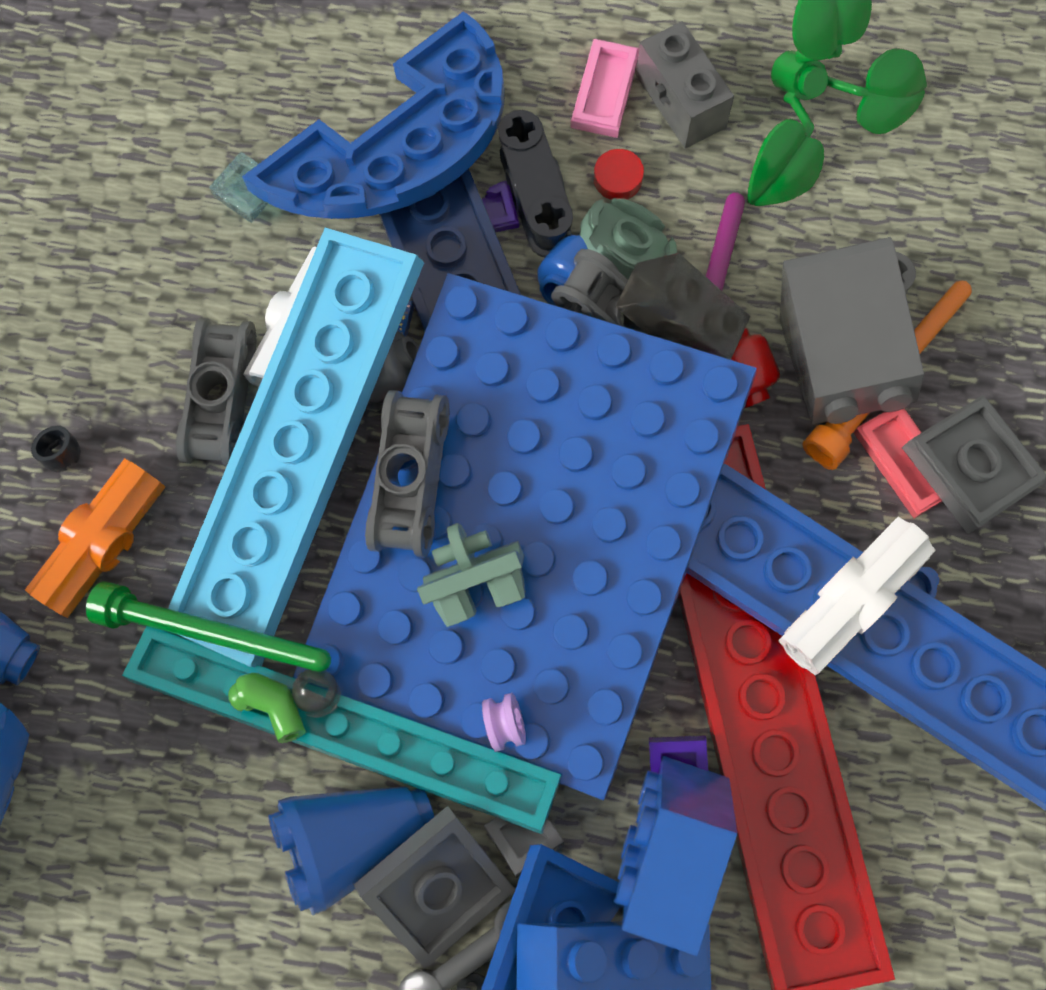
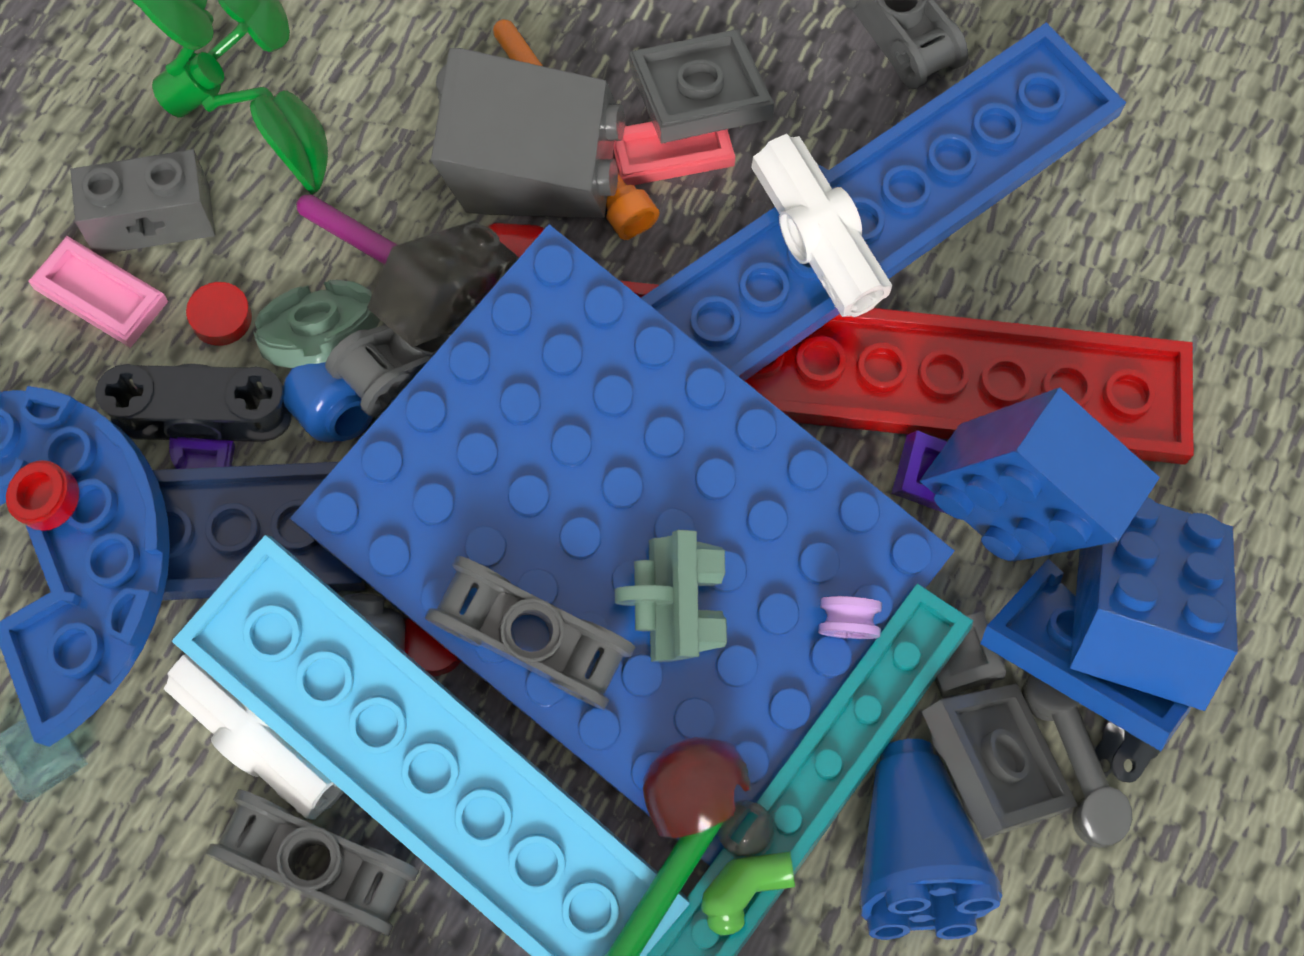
camera: 80 degrees left, 5 degrees down
(327, 634) = (693, 786): none -> clear red hair
(417, 107) = (42, 495): none -> red tile

